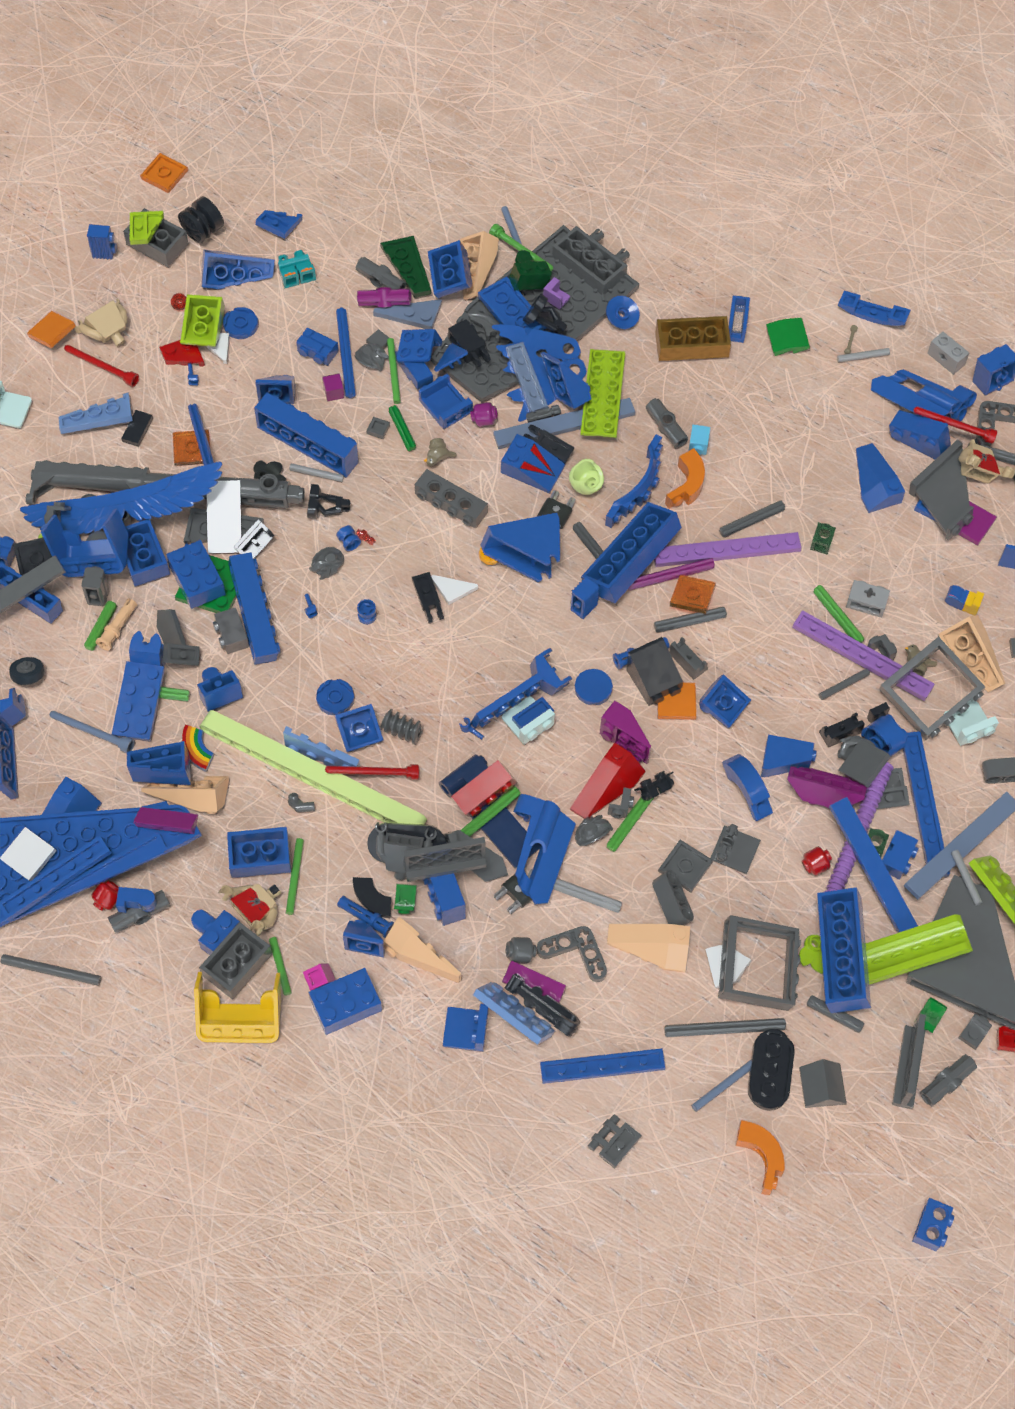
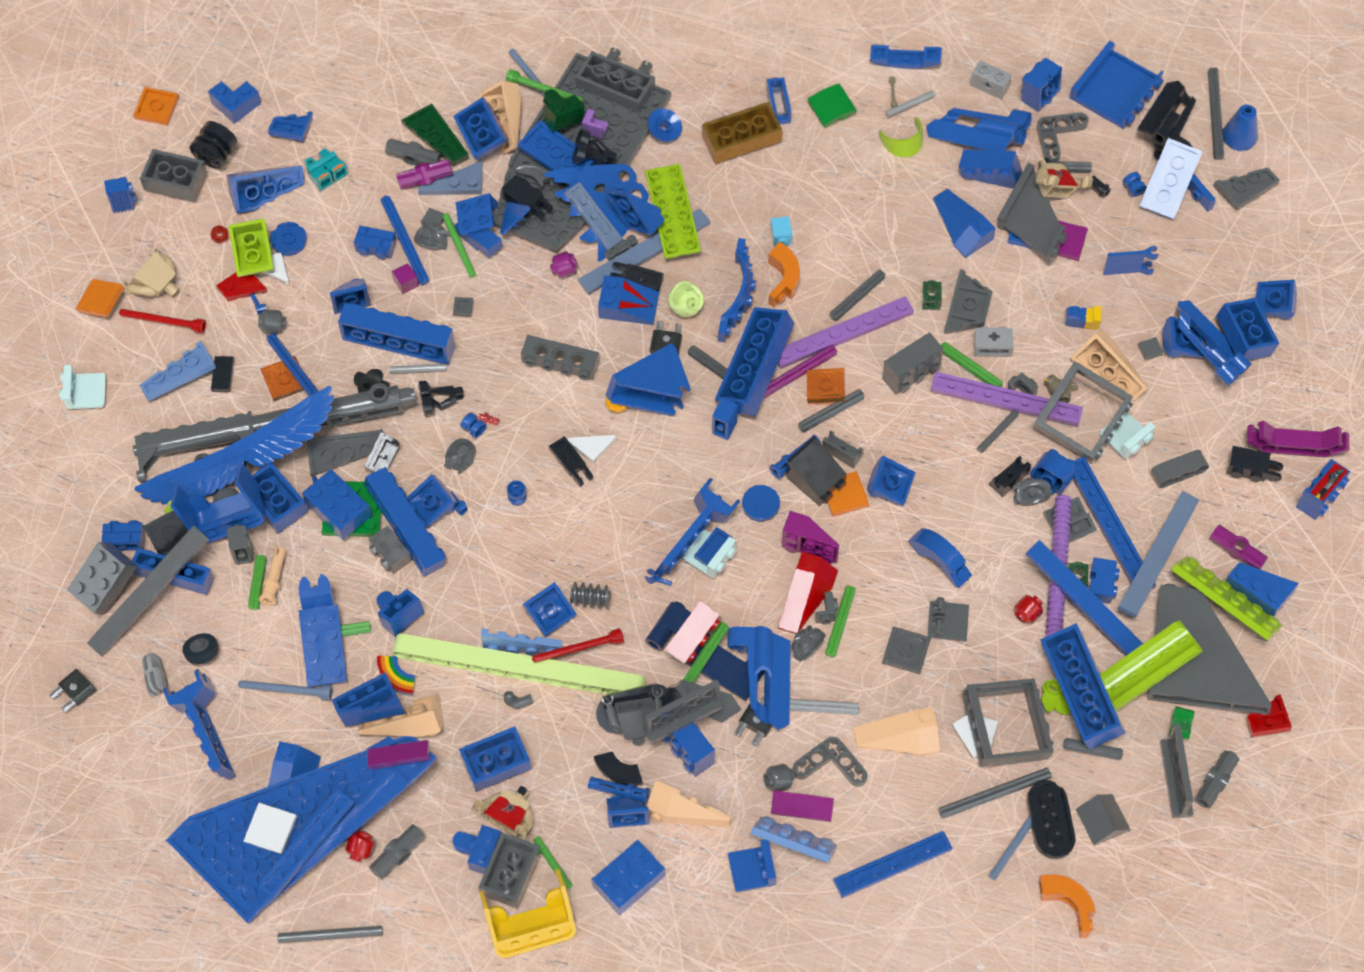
camera: 15 degrees left, 0 degrees up
(55, 510) = (172, 480): dark grey bracket -> none
(135, 898) = (392, 839): blue leg -> none
(144, 225) = (160, 167): lime wing -> none
(175, 649) = (340, 580): dark grey piece -> none
(197, 392) = (271, 321): none -> dark grey head
(224, 517) = (344, 440): white sticker -> none
(235, 188) = (234, 103): none -> blue brick
(285, 596) = (432, 500): none -> blue slope
(294, 876) = (536, 772): bright green bar -> none
(319, 975) = (596, 861): dark pink brick -> none
(335, 697) = (514, 585): blue tile -> none
(402, 428) = (487, 300): green axle -> none
(405, 898) = (651, 761): green bracket -> none
(437, 452) = (531, 315): dark tan animal -> none
(444, 402) = (520, 262): blue panel -> none
(544, 1005) = (819, 823): black piece -> none
(619, 1145) = (934, 933): dark grey plate -> none
(649, 787) = (847, 584): black hinge -> none
(670, 429) = (751, 229): dark grey piece -> none
(672, 899) = (906, 685): dark grey beam -> none
(782, 596) = (912, 363): none -> dark grey brick
(786, 752) = (966, 516): blue slope -> none
(824, 787) = (1013, 537): magenta wedge -> none
(845, 393) = (905, 147): none -> lime piece
(855, 557) = (968, 304): none -> dark grey wing
(864, 763) = (1043, 502): dark grey tile -> none
(878, 711) = (1039, 449): black plate -> none
(930, 1223) = (1241, 917): blue brick -> none
(966, 877) = (1173, 583): light grey bar -> none
(975, 1031) = (1226, 725): dark grey bracket -> none
(989, 435) = (1055, 150): red piece -> none

